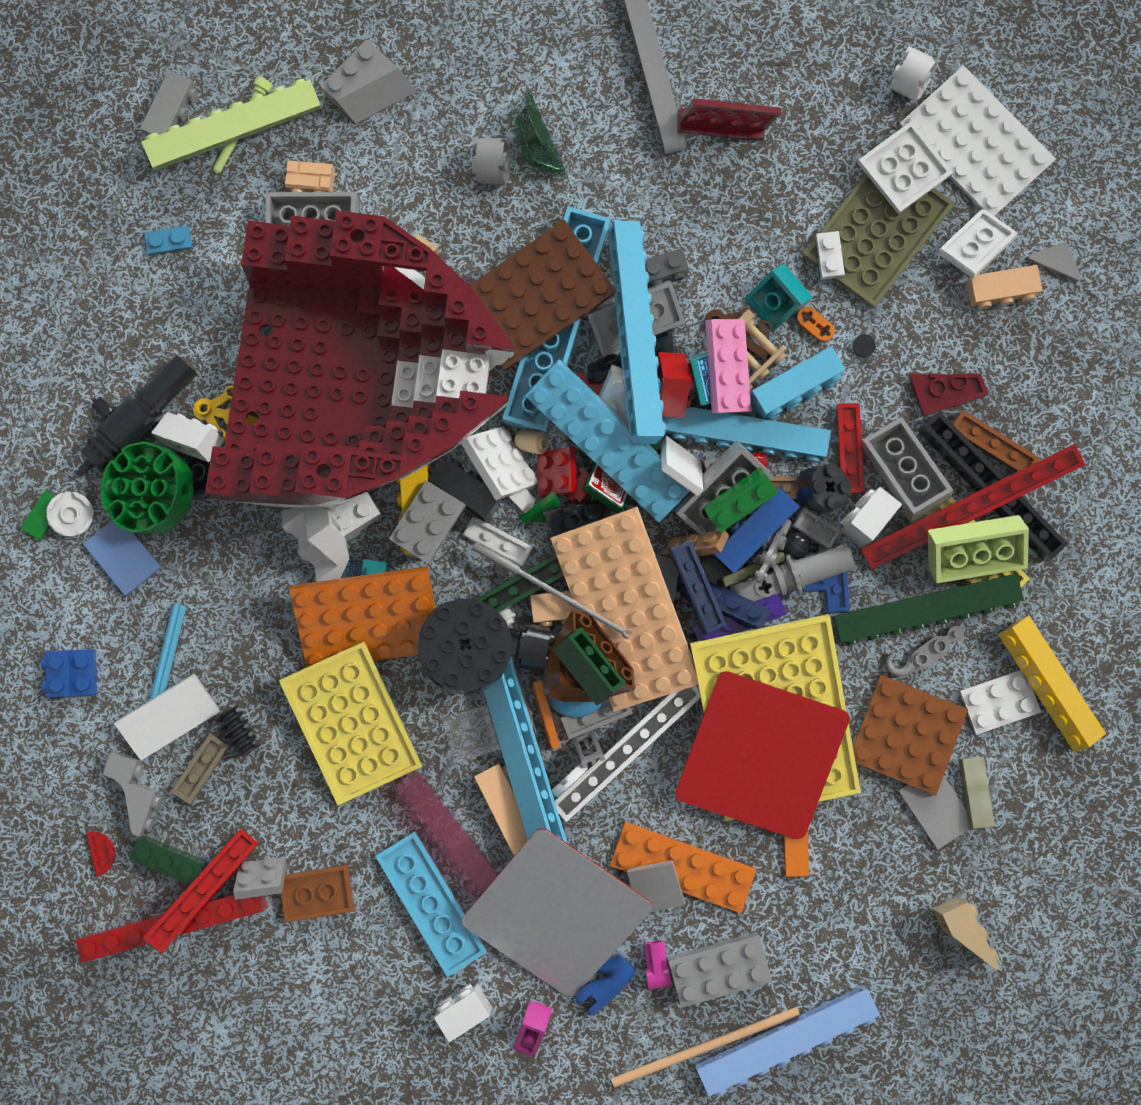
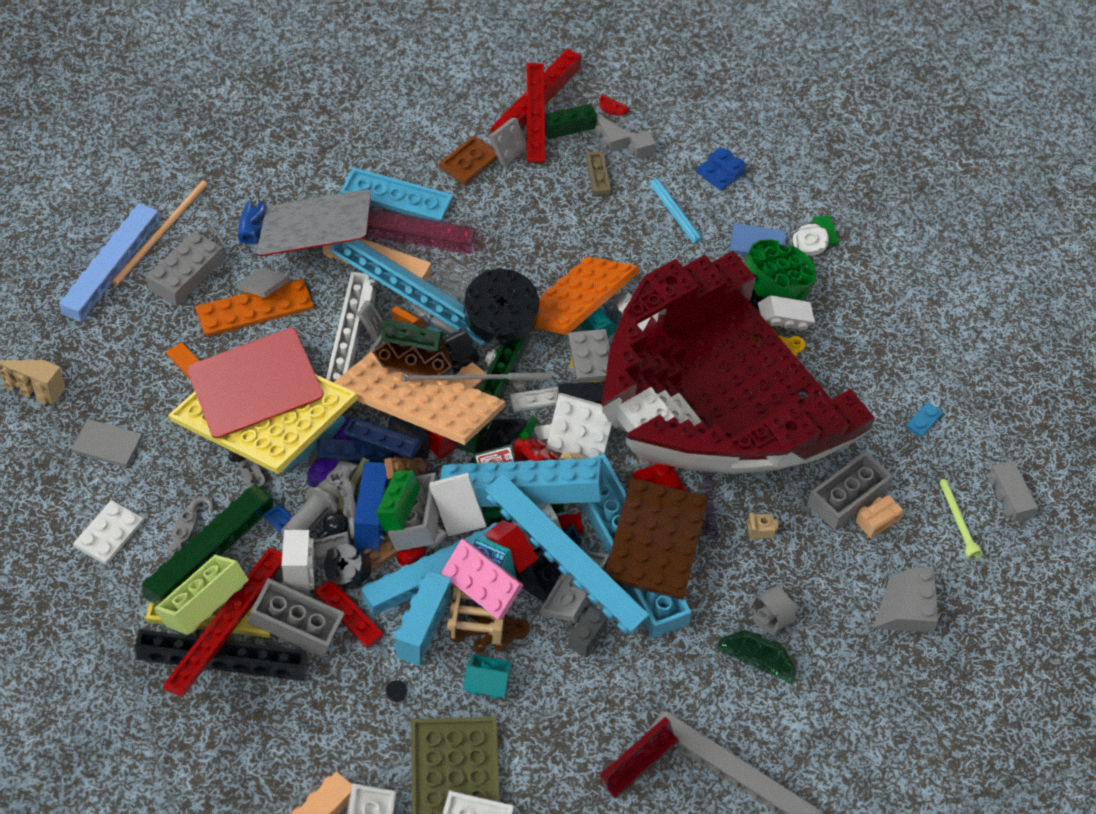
camera: 130 degrees right, 30 degrees down
(134, 415) = (830, 309): black piece -> none
(167, 716) = (643, 183): white tile -> none
(231, 124) = (961, 505): yellowish green brick -> none
(237, 732) = (594, 200): black piece -> none
(350, 723) = (533, 243): light yellow plate -> none
(463, 1012) = (327, 153): white brick -> none
(532, 1028) = (278, 176): dark pink slope -> none
(657, 970) = (230, 250): dark pink piece -> none
(818, 320) = (445, 678): orange beam -> none
(829, 255) = (475, 726): white plate -> none
(908, 734) = (161, 468): dark orange plate -> none
(943, 391) = (308, 702): dark red wing -> none
(976, 793) = (84, 466): tile -> none
(994, 442) = (242, 691): dark orange plate -> none
(1052, 684) = (79, 561): yellow brick -> none

